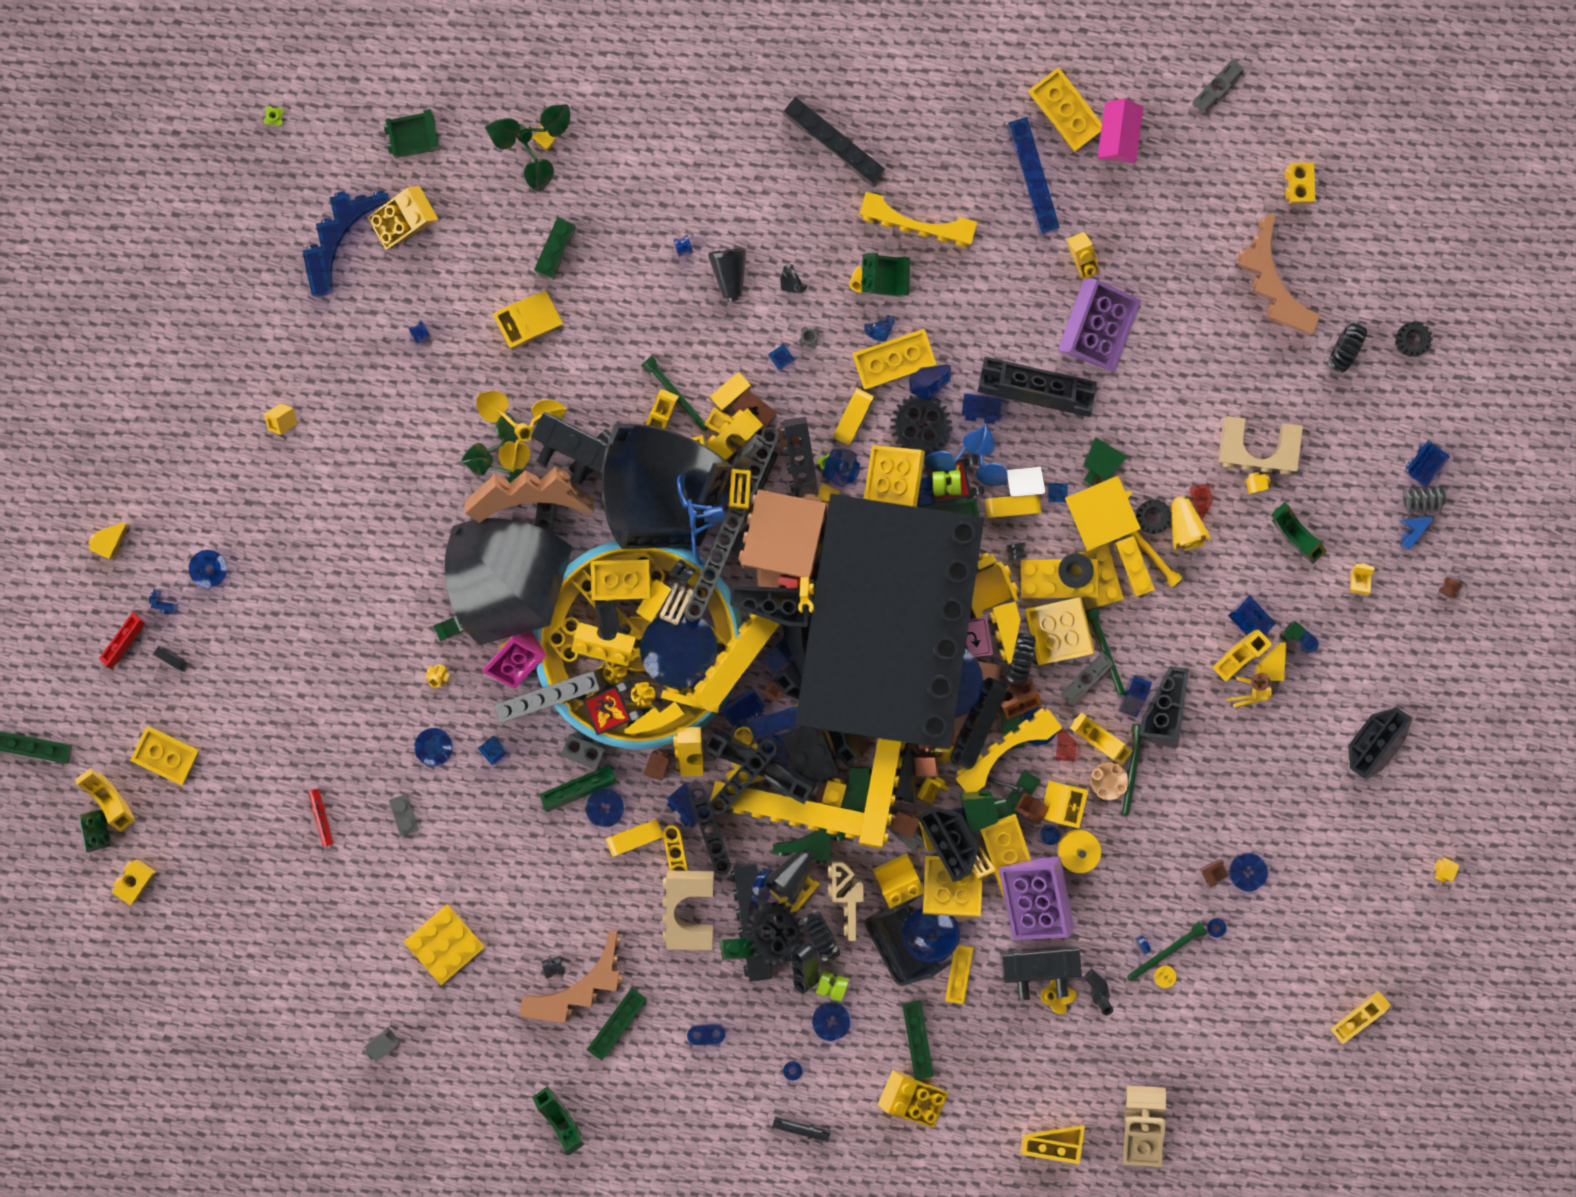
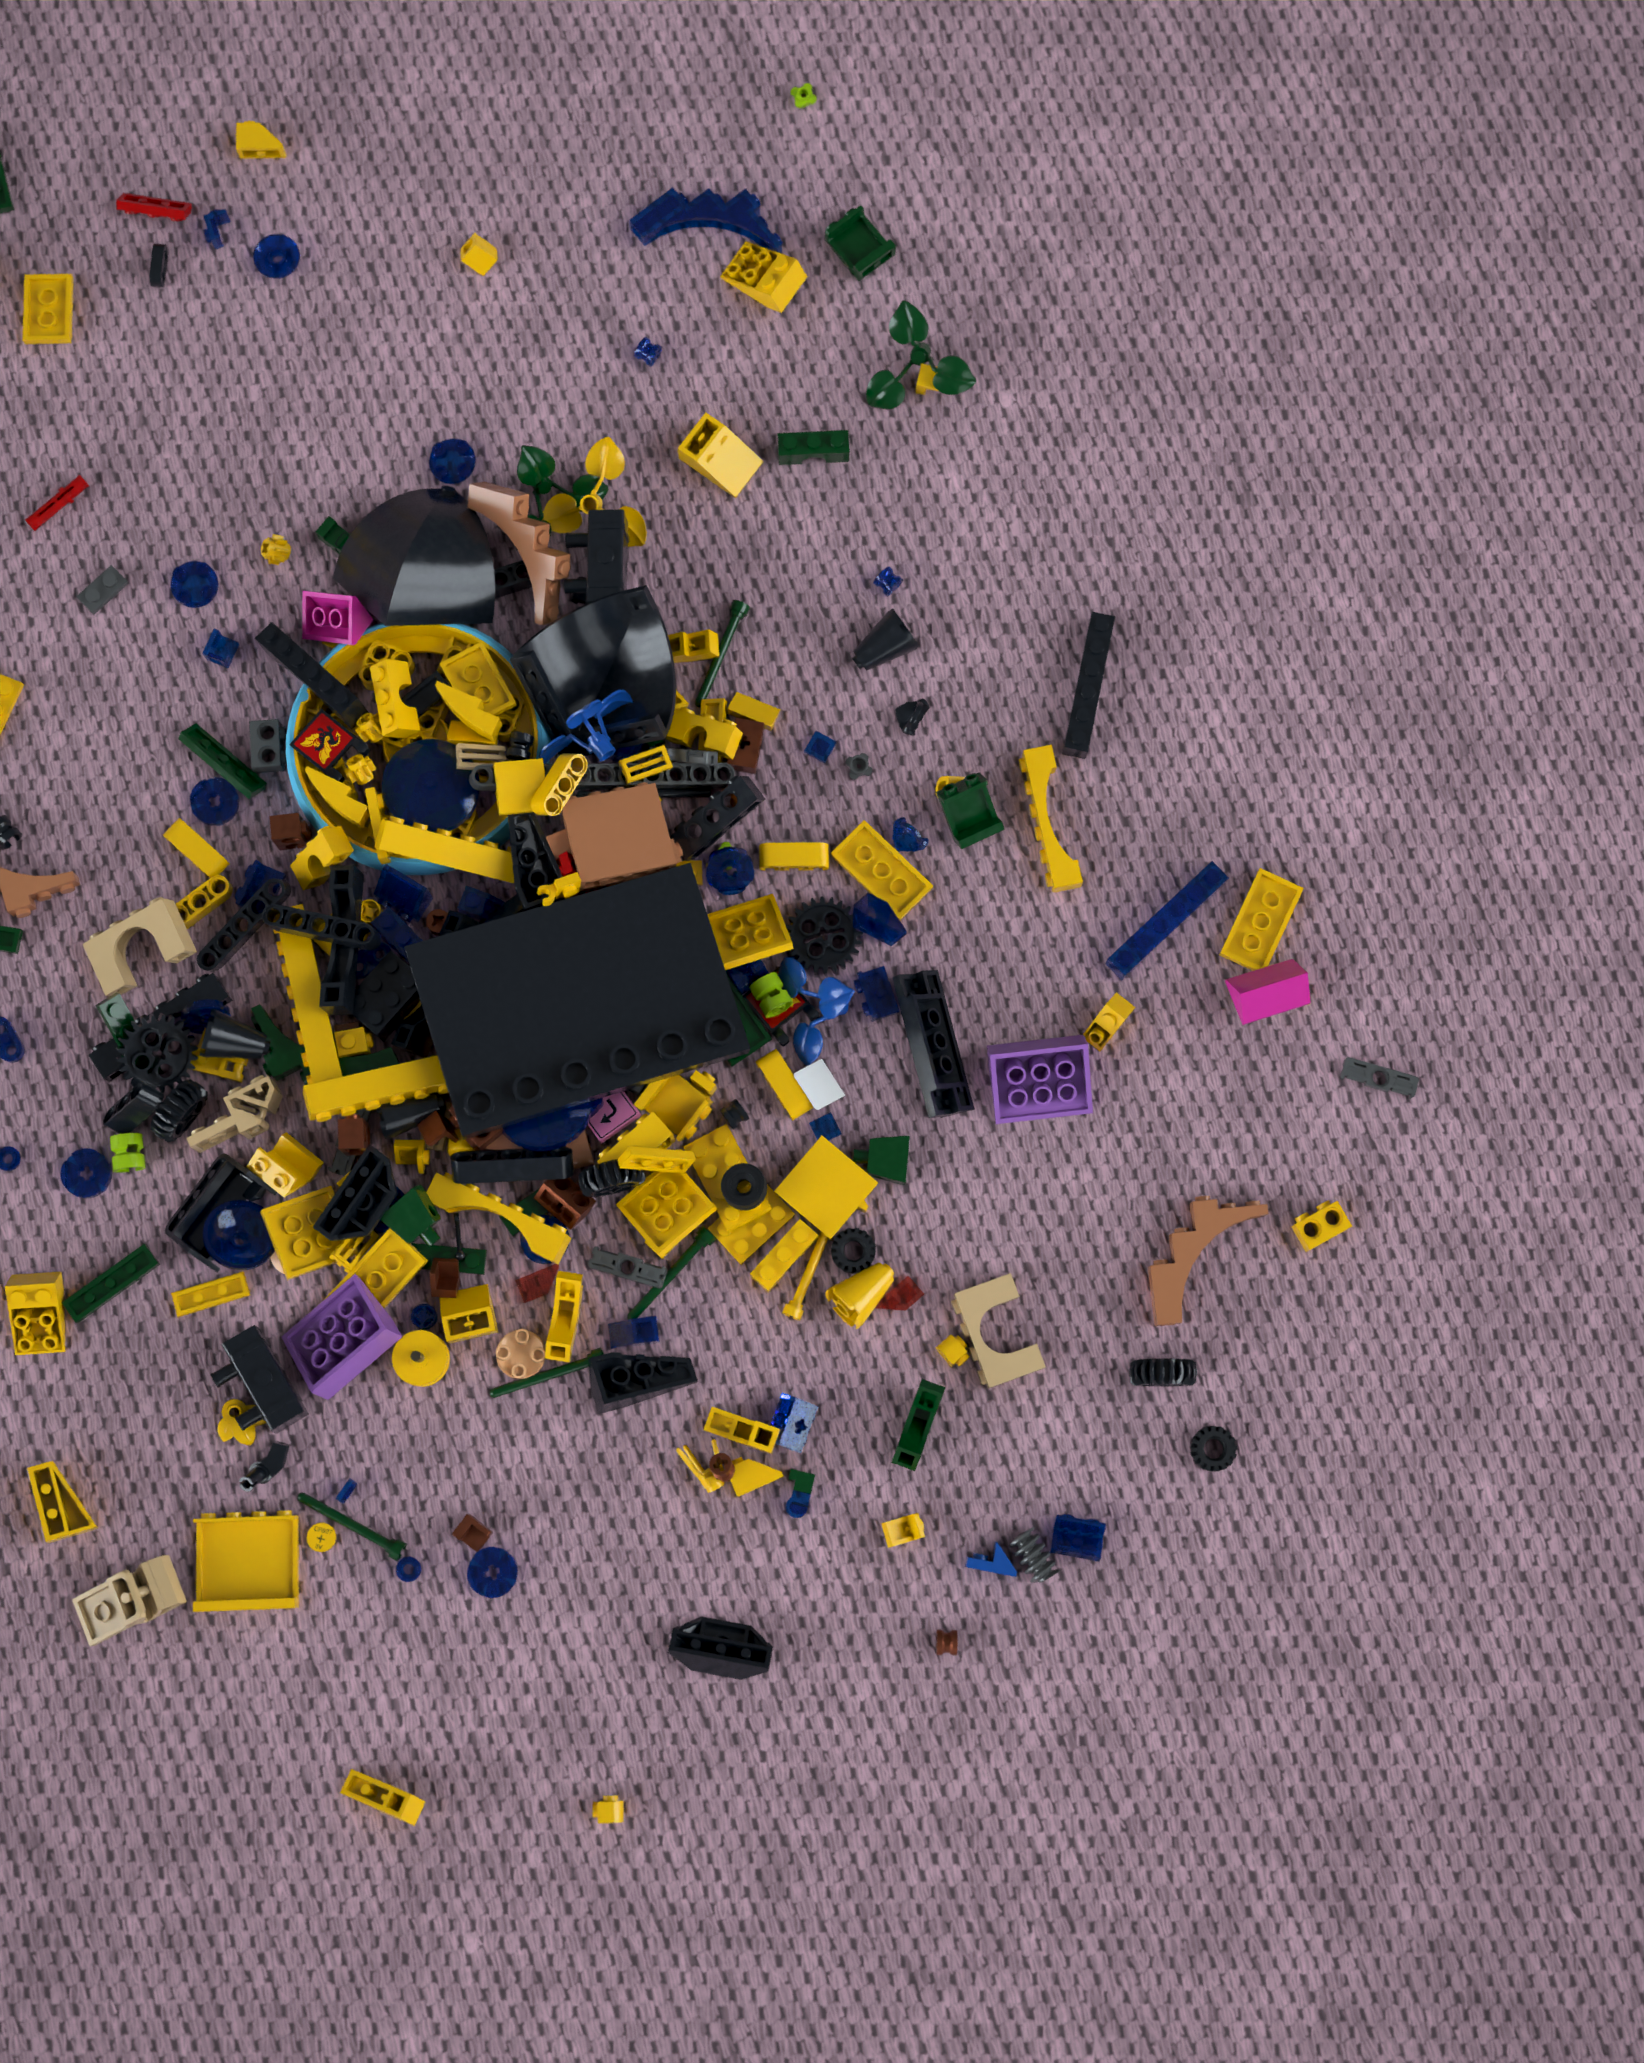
camera: 65 degrees right, 10 degrees down
(432, 516) = (452, 461): none -> clear blue dish
(639, 595) = (470, 711): none -> yellow slope
(716, 586) = (517, 784): none -> yellow slope
(729, 558) = (549, 789): none -> yellow beam
(1028, 622) = (656, 1159): none -> yellow plate
(1157, 1035) = (247, 1561): none -> yellow panel

